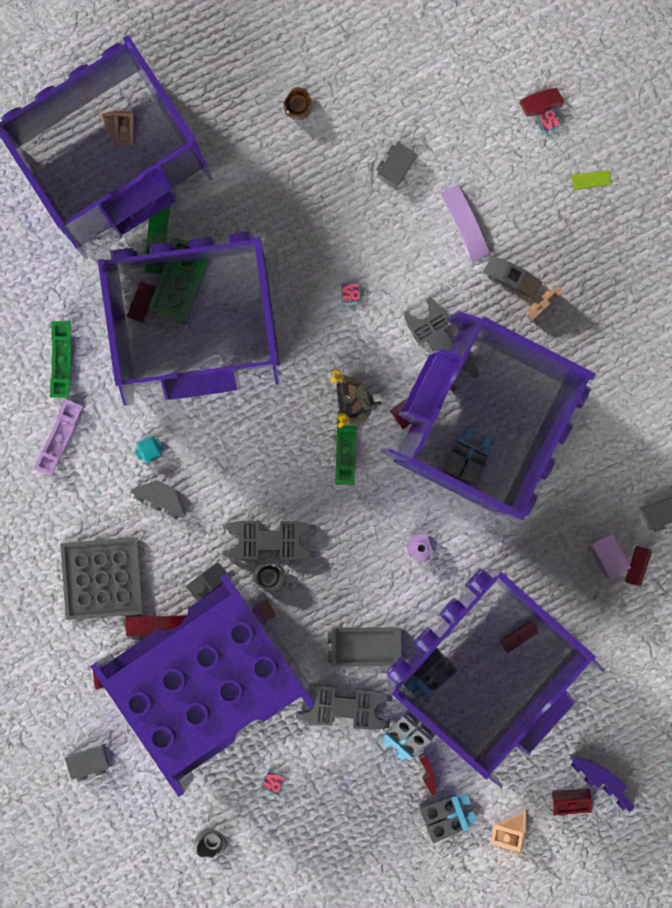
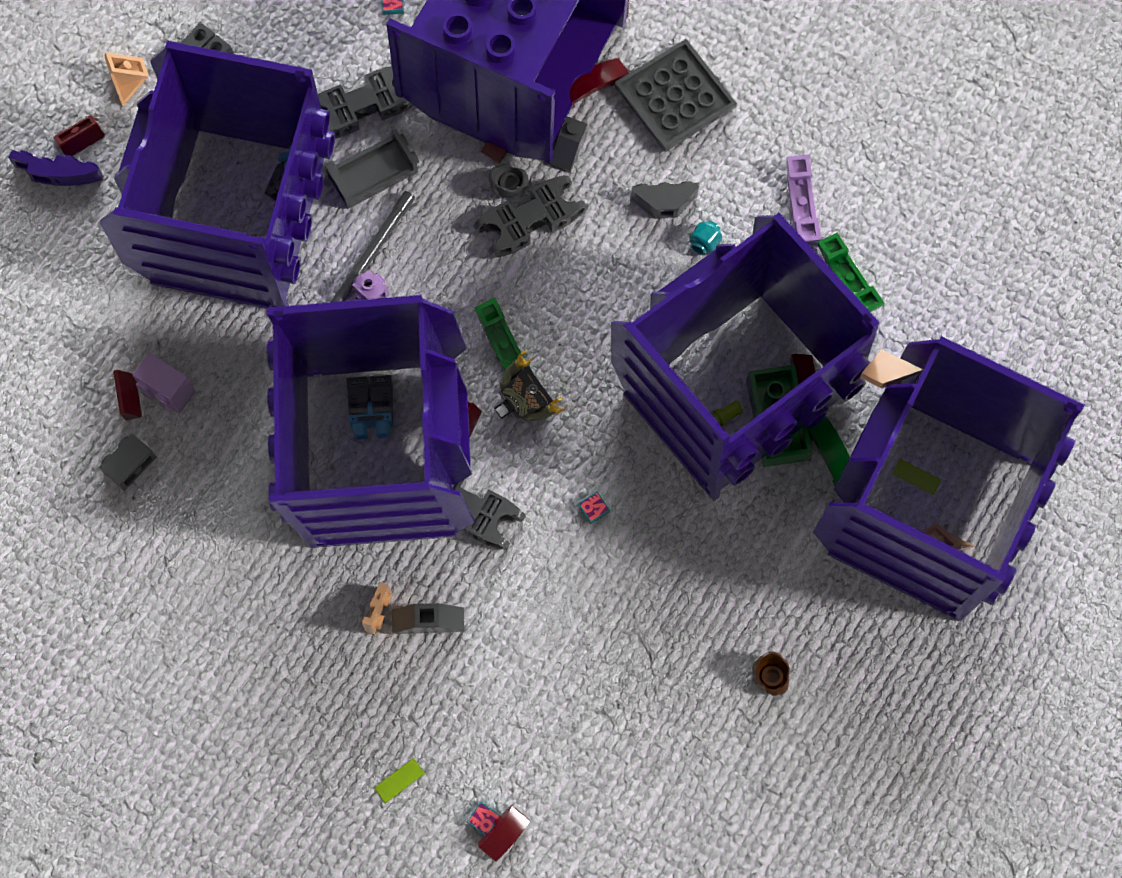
camera: 150 degrees right, 15 degrees down
(103, 237) = (888, 370): none -> light nougat slope
(104, 181) = (916, 476): none -> lime sticker
(222, 307) = (727, 412): none -> lime pin
(363, 602) = (398, 211): none -> dark grey piece
(396, 165) = (624, 669): dark grey brick -> none
(465, 223) = (513, 650): lavender slope -> none

